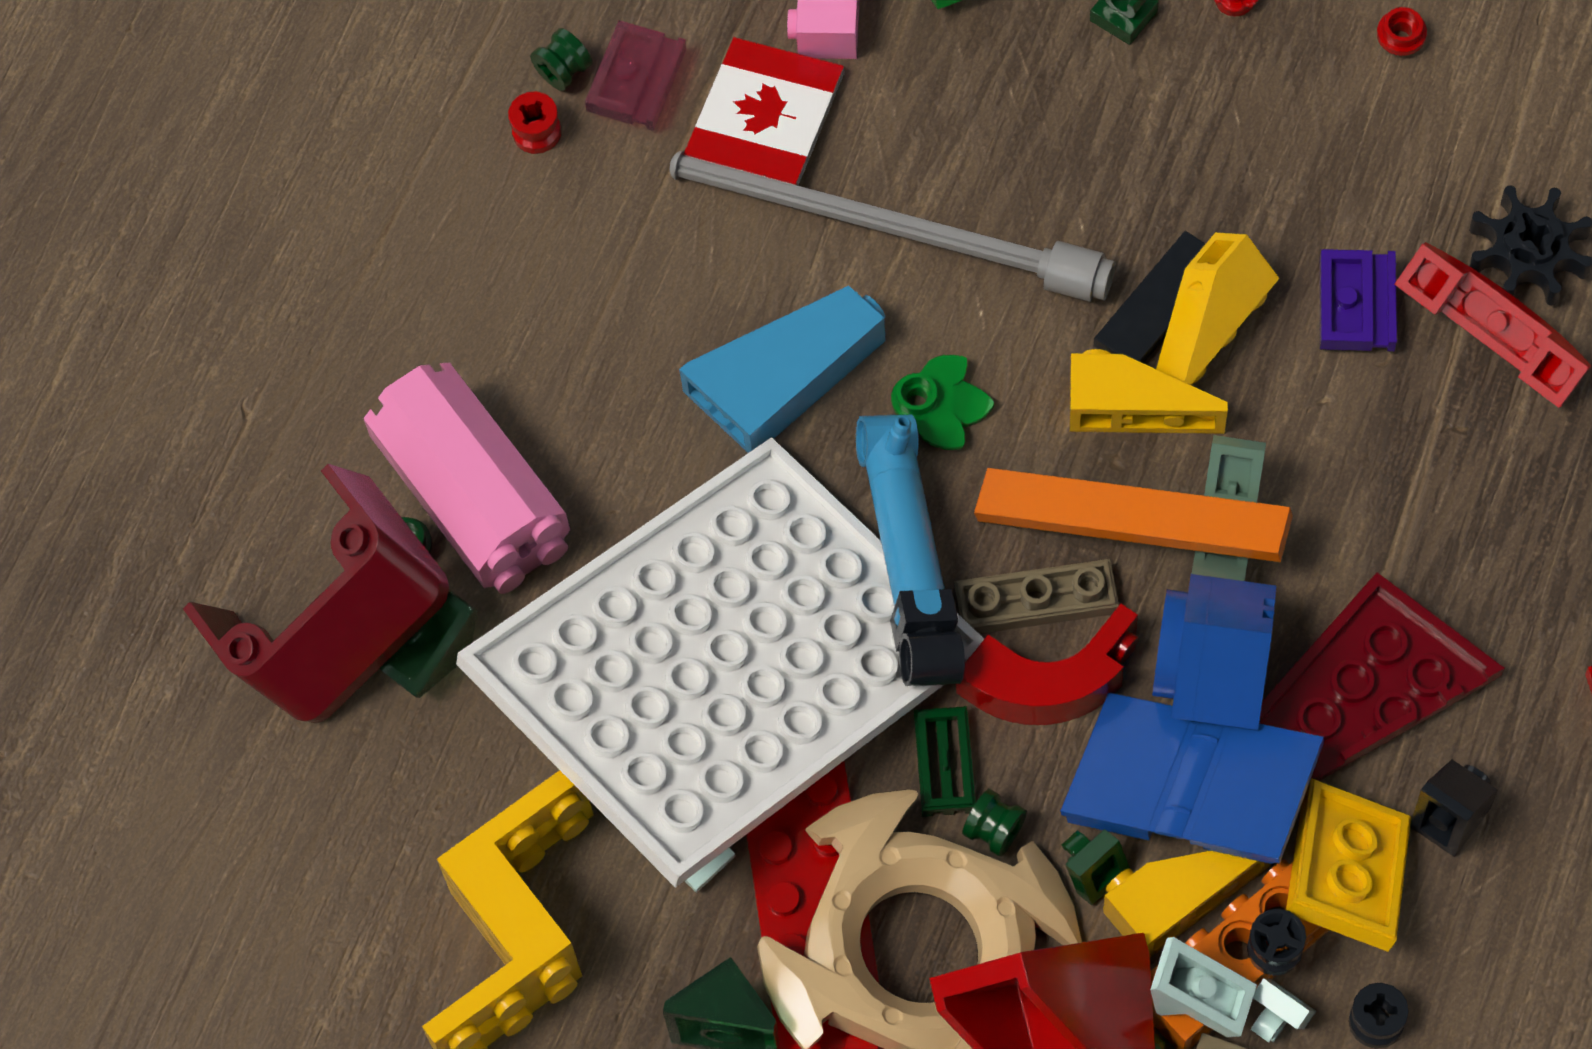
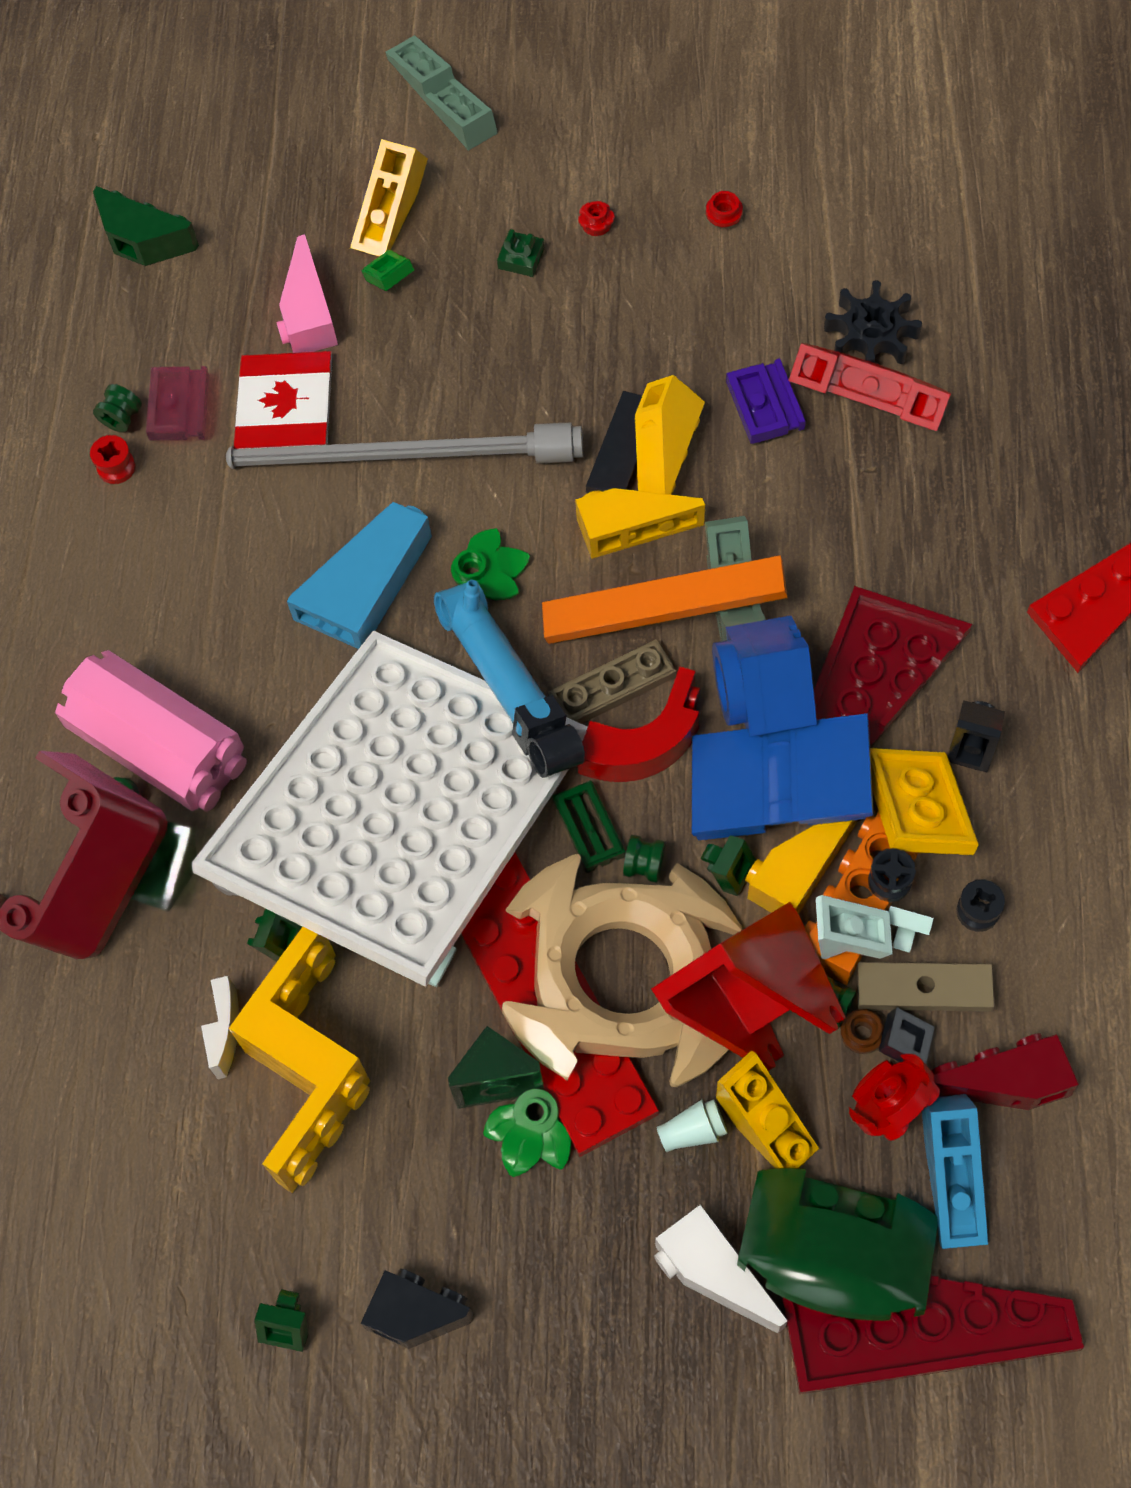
camera: 20 degrees left, 0 degrees up
(422, 870) = (218, 1039): none -> white slope
(526, 767) = (273, 934): none -> dark green tile

